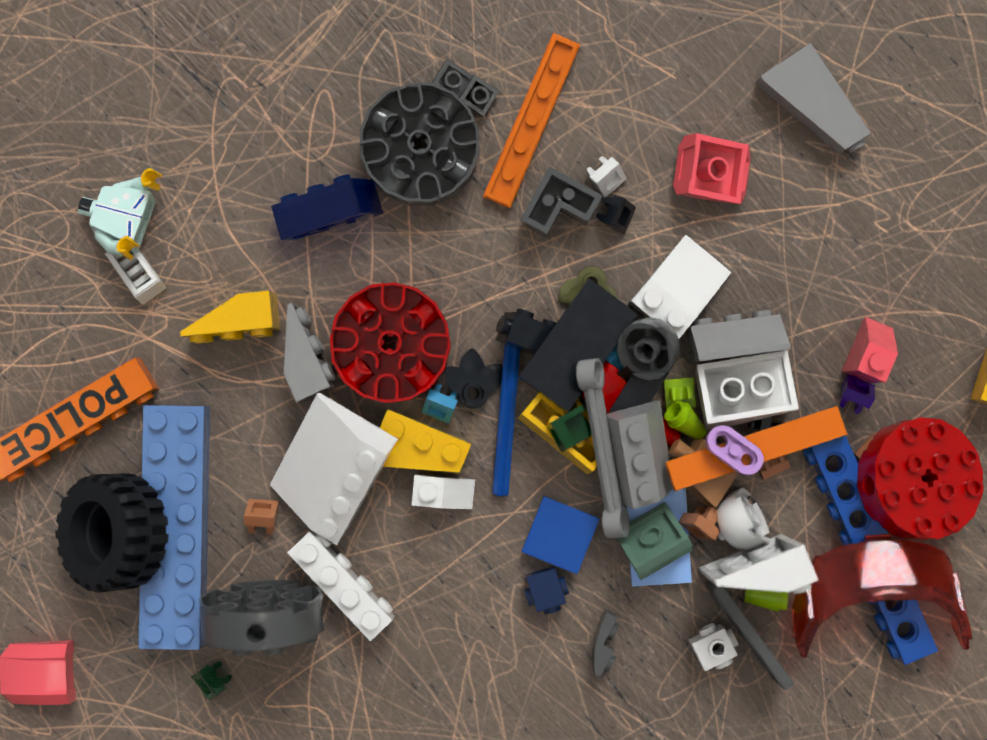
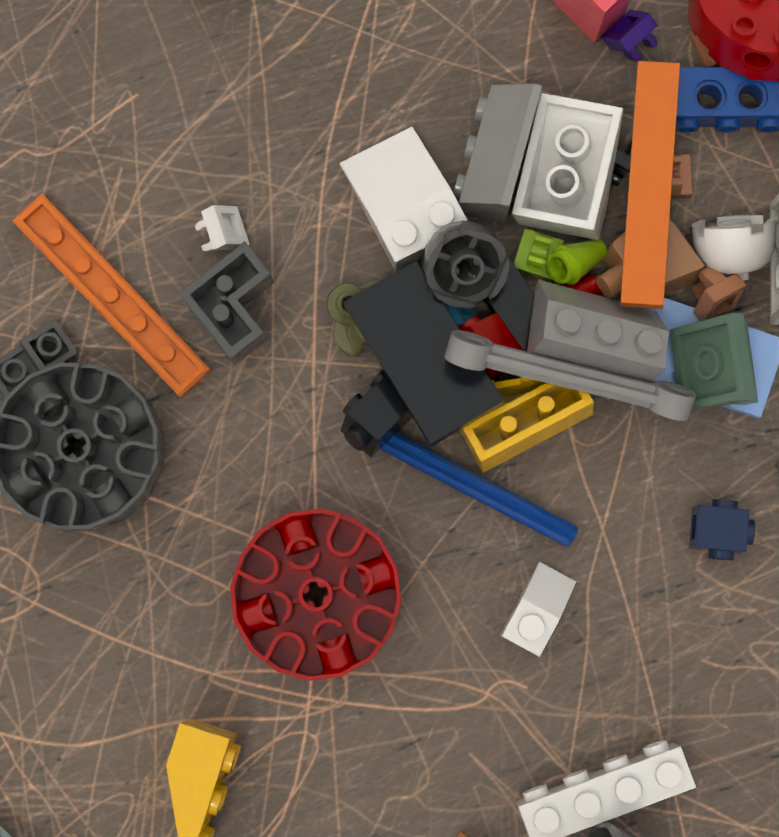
camera: 55 degrees left, 5 degrees down
(303, 361) = (297, 720): light grey slope -> none
(325, 207) = (104, 604): clear blue wedge -> none
(331, 467) = (445, 741): white slope -> none
(422, 445) = (464, 618): yellow wedge -> none
(440, 405) = (424, 565): dark azure tile -> none
(474, 375) = (402, 508): black plate -> none
(560, 535) = (657, 481): blue tile -> none
(569, 429) = (527, 408): dark green panel -> none
(618, 213) = (277, 235): black tile -> none
(712, 169) = (270, 95): coral slope -> none
(733, 450) = (639, 208): lavender plate -> none

